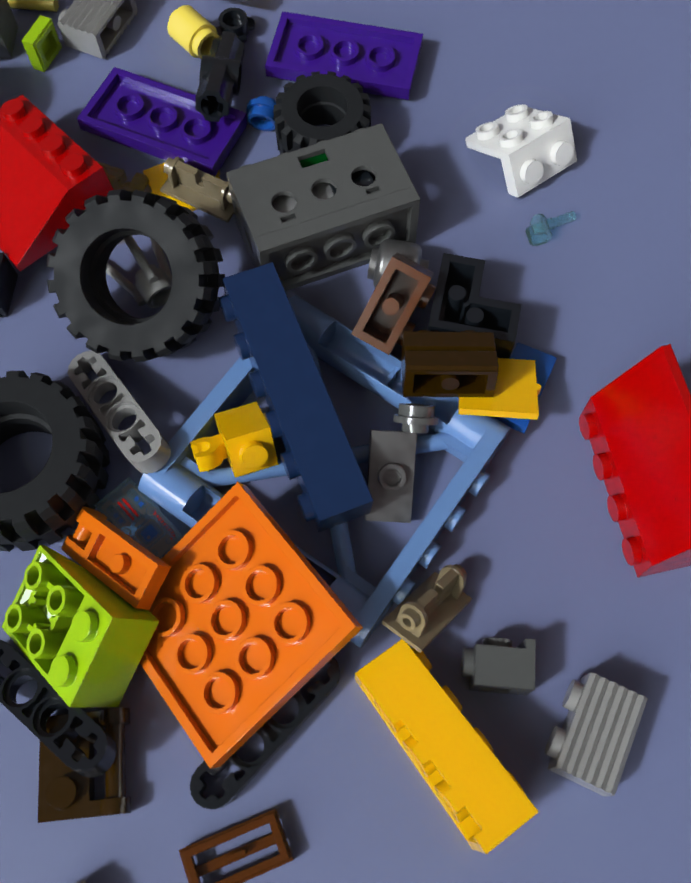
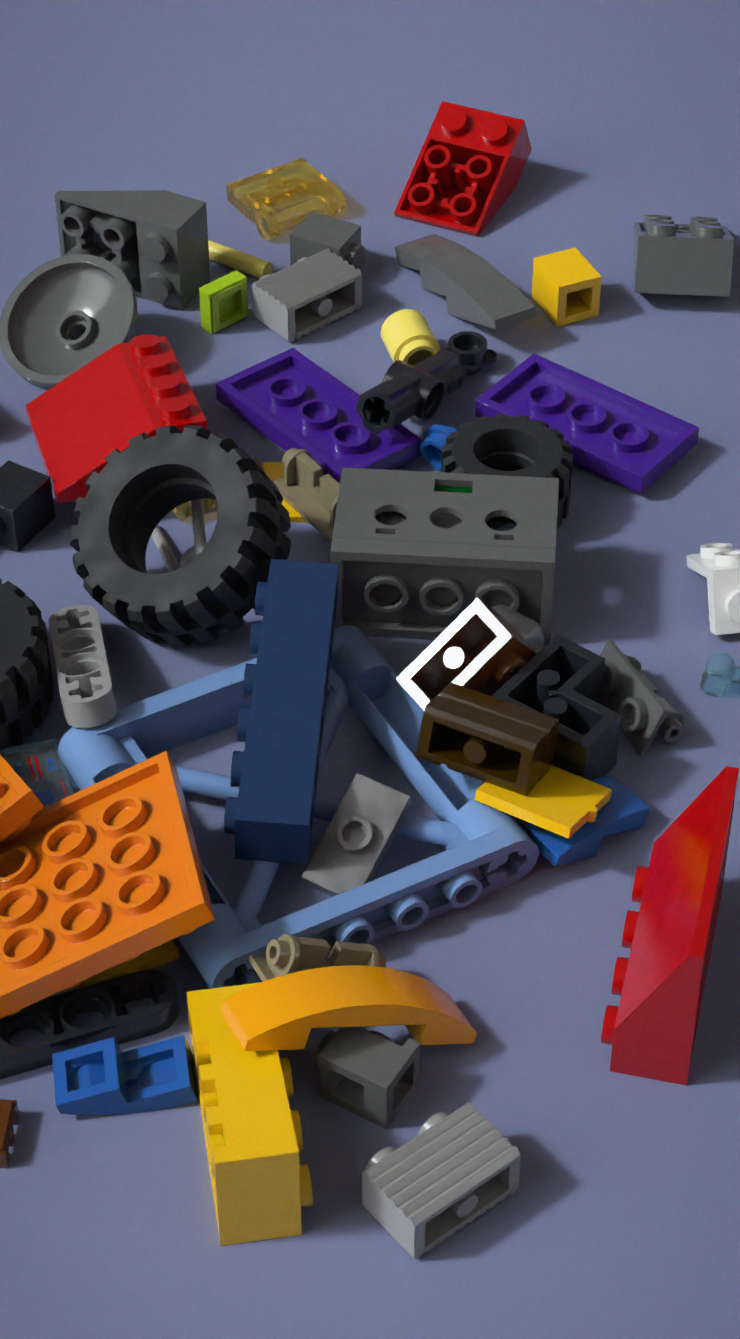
camera: 25 degrees right, 25 degrees down
(242, 439) = (201, 738): yellow brick -> none
(335, 748) = (114, 1082): none -> blue slope
(416, 417) = (419, 780): dark grey plate -> none
(471, 644) = (285, 1008): none -> light orange slope
(500, 277) = (635, 699): none -> dark grey hinge

